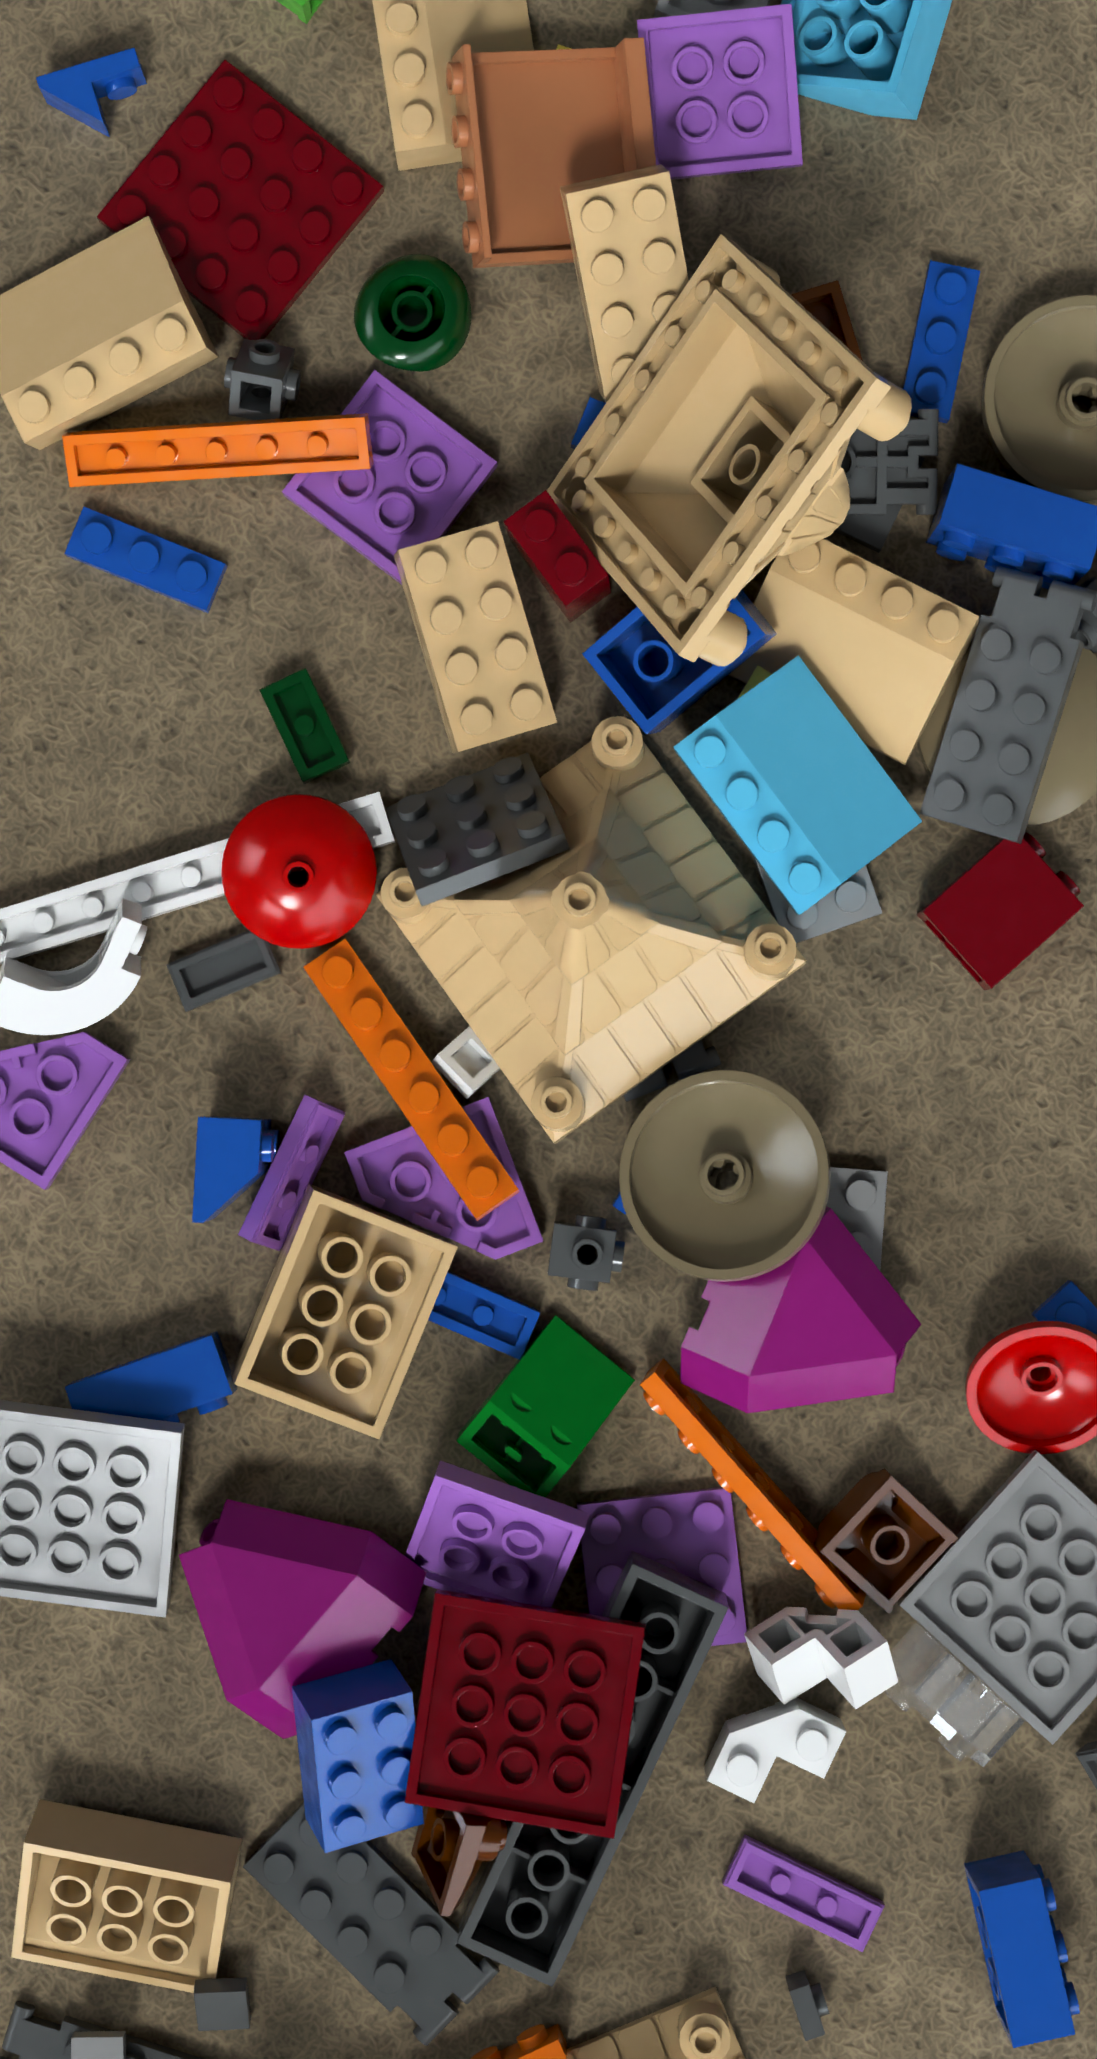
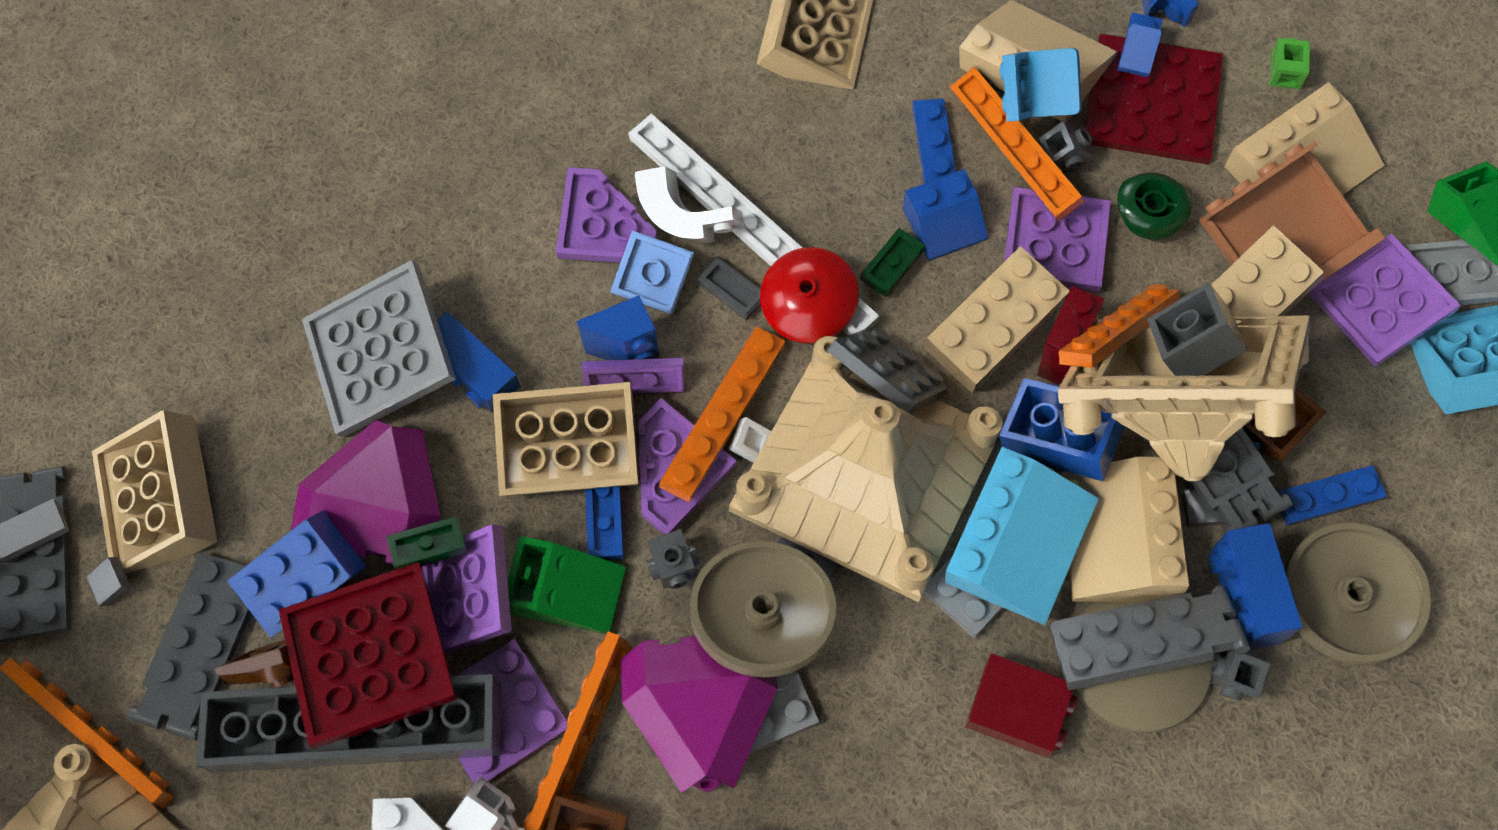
camera: 65 degrees right, 20 degrees down
(148, 1070) = (652, 271): none -> light blue tile
(154, 174) = (1140, 44): none -> slope
(164, 372) = (1041, 83): none -> dark azure bracket
(275, 612) = (945, 214): none -> blue slope
(411, 1571) = (427, 543): none -> dark green plate
(592, 489) = (1117, 327): none -> orange plate
(676, 408) = (1197, 333): none -> dark grey brick

